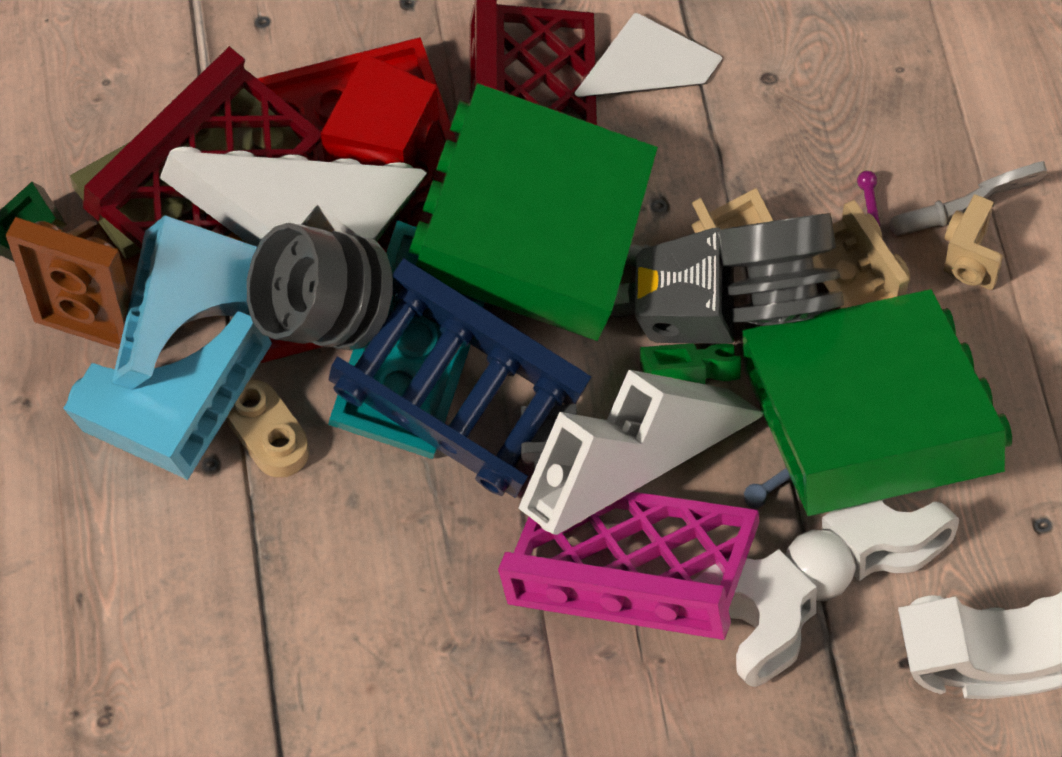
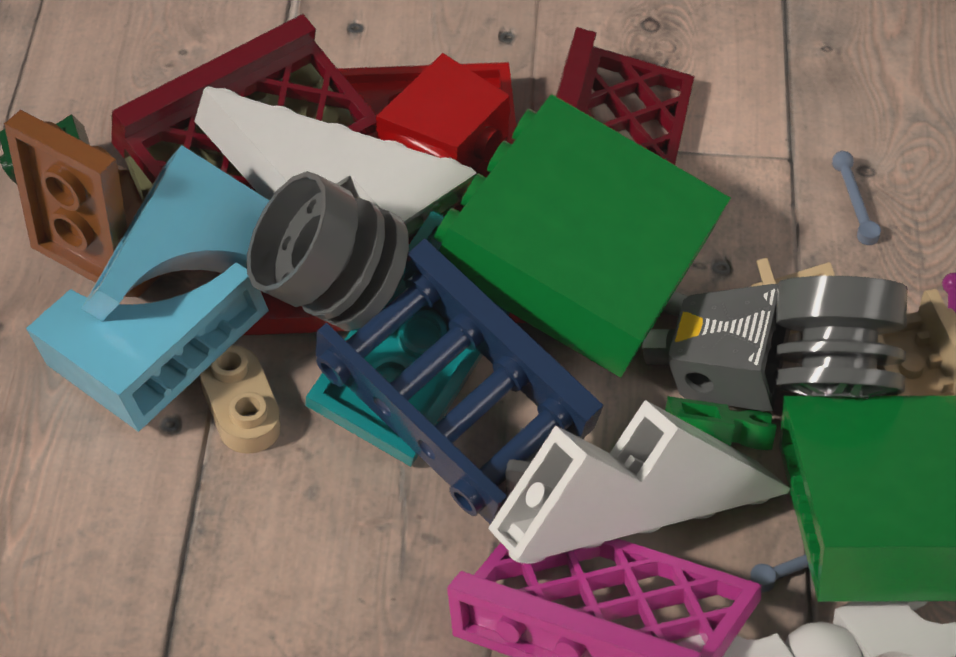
camera: 10 degrees right, 10 degrees down
(648, 58) = (742, 127): white sticker -> none
(783, 142) = (868, 231): none -> sand blue hinge

